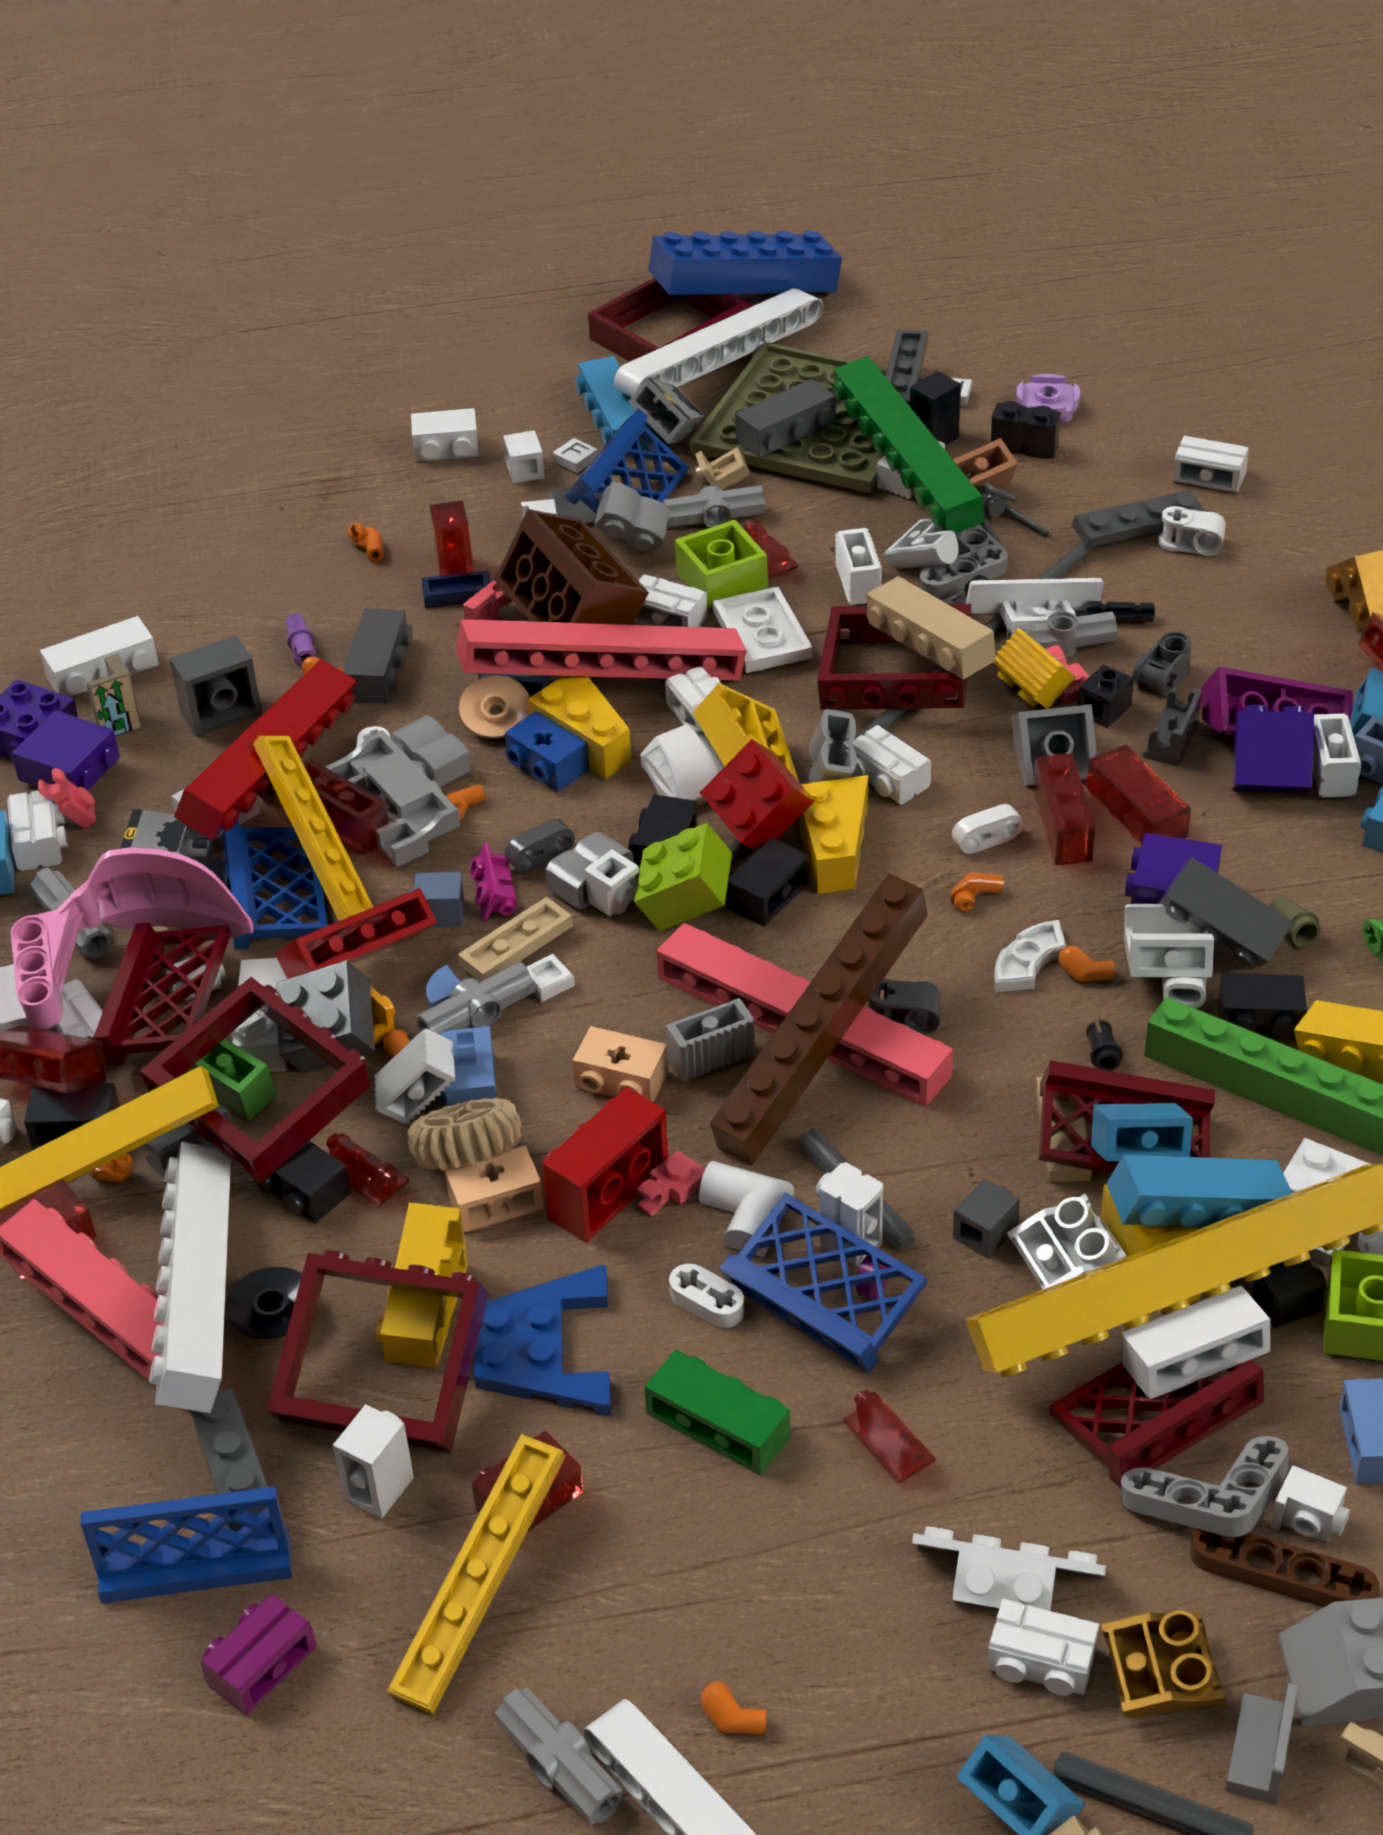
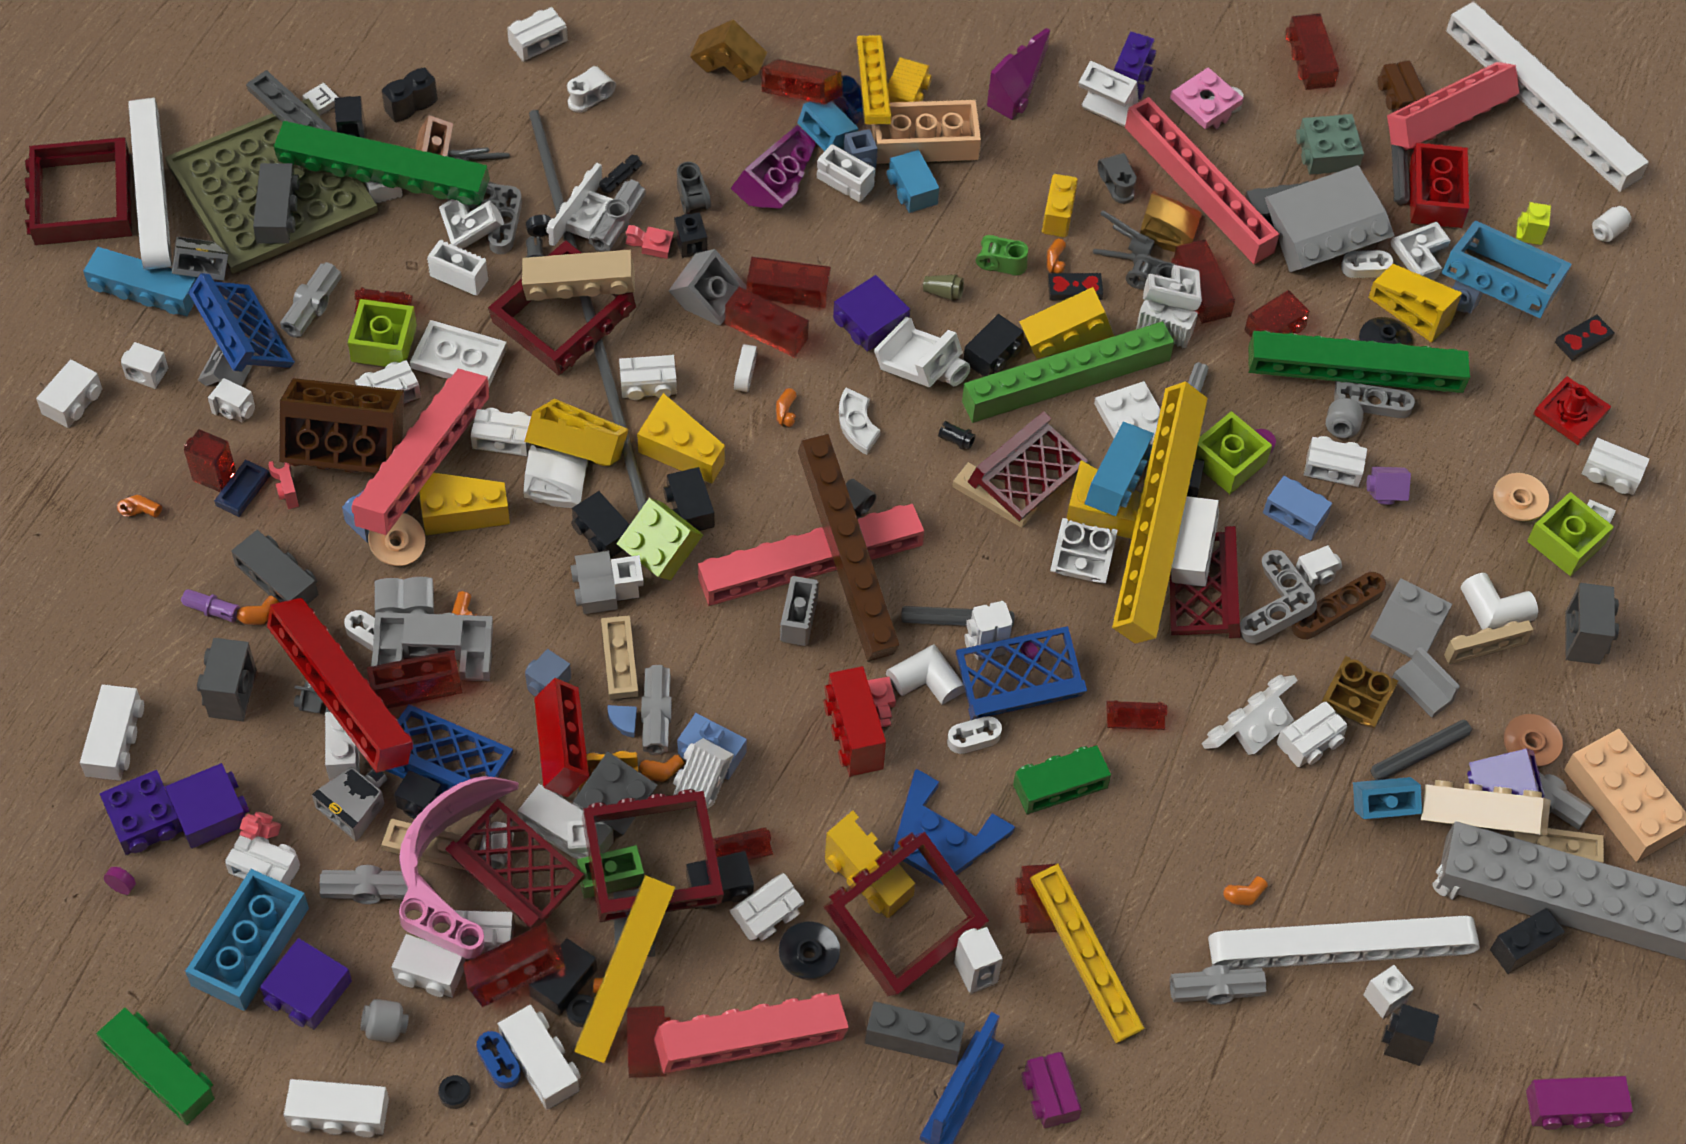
camera: 60 degrees left, 15 degrees up
(115, 699) = (182, 741): panel -> none
(192, 1279) = (776, 974): white brick -> none
(292, 1229) = (767, 907): none -> white brick
(312, 826) = (440, 702): yellow tile -> none
(464, 1133) = (773, 776): tan gear -> none
(493, 884) = (550, 636): dark pink hinge -> none
(495, 1189) = (814, 803): light nougat brick -> none
(539, 845) = (548, 594): dark grey beam -> none
(546, 751) = (465, 537): blue brick -> none
(550, 977) = (662, 656): white tile -> none
(574, 455) = (167, 336): white tile -> none
(614, 1061) = (774, 668): light nougat brick -> none
(632, 517) = (288, 349): light grey brick -> none
(722, 471) = (277, 269): tan bracket -> none
(744, 263) = (79, 111): blue brick -> none
(756, 796) = (637, 459): red brick -> none
(832, 747) = (625, 397): light grey brick -> none
(985, 1218) = (1033, 572): dark grey brick -> none
(1032, 669) = (647, 250): yellow brick -> none
(1050, 391) = (385, 71): lavender plate -> none
(1083, 967) = (889, 402): orange arm -> none
(1130, 519) = (549, 104): dark grey plate -> none
(1141, 1130) = (1053, 463): dark azure brick -> none
(1174, 728) = (746, 223): dark grey hinge -> none
(1226, 912) = (929, 312): dark grey brick -> none
(1273, 749) = (821, 196): dark purple brick -> none

